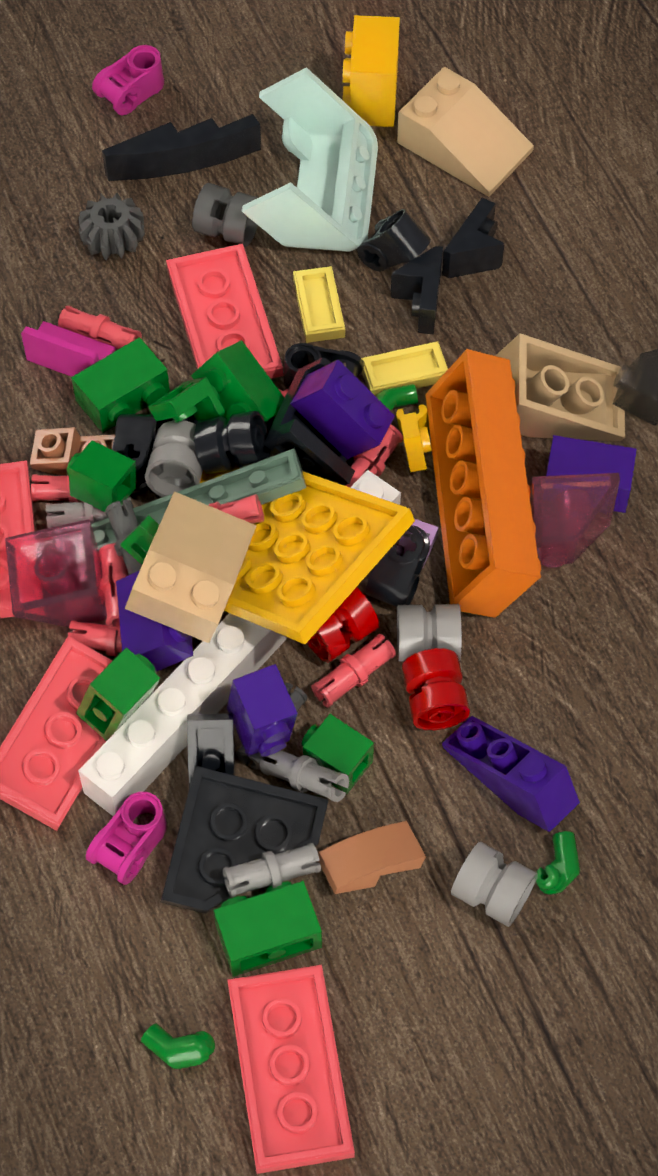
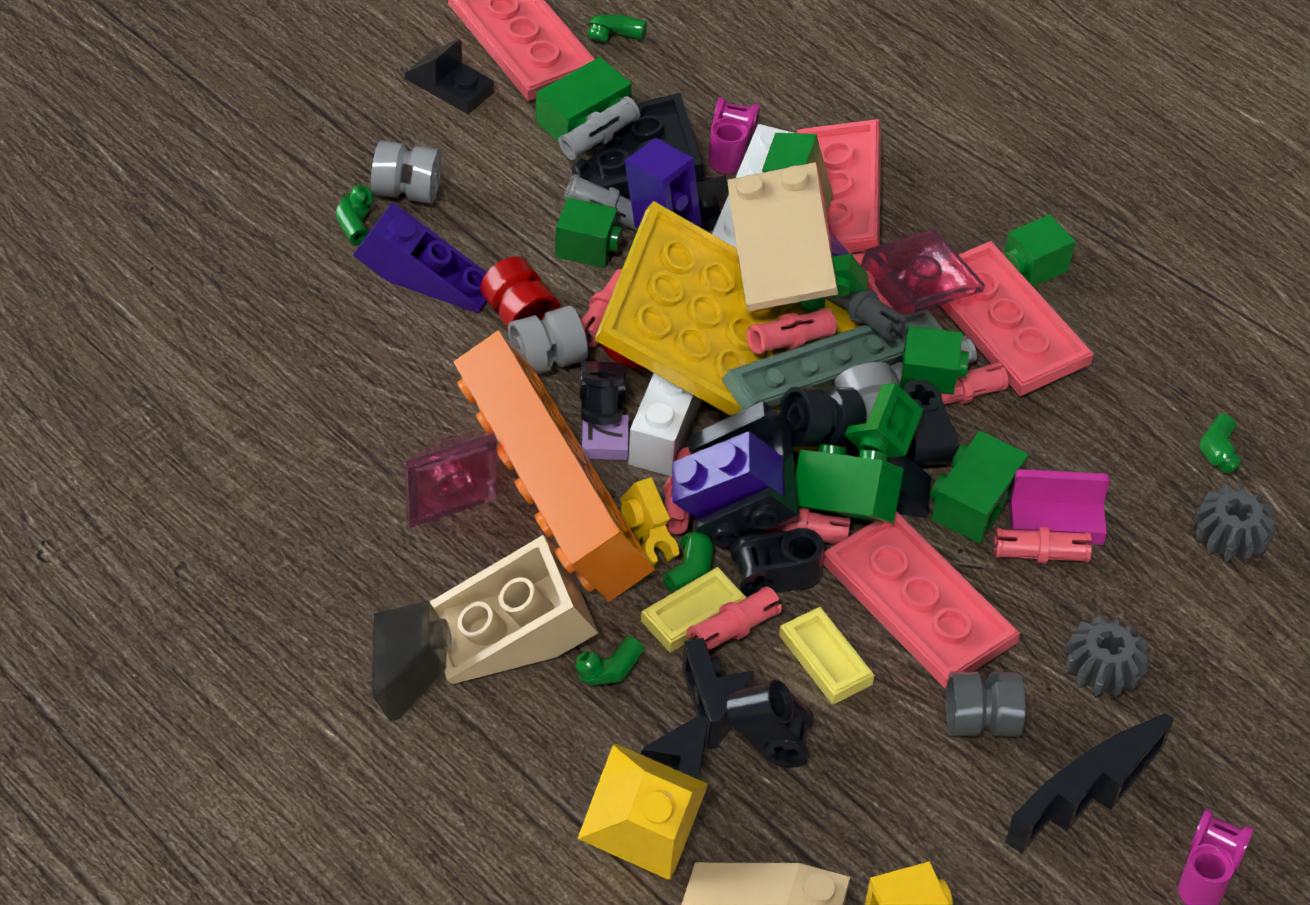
camera: 155 degrees right, 10 degrees down
(57, 446) = (994, 413): nougat slope -> none
(335, 171) = (876, 781): light aqua windscreen -> none
(368, 855) = (519, 169): nougat slope -> none
(397, 1031) = (449, 79): none -> black slope
(407, 336) = (736, 618): none -> coral pin
(490, 339) = (614, 669): none -> green arm
(519, 195) = (642, 811): none -> yellow slope
(582, 457) = (444, 539): dark purple brick -> none

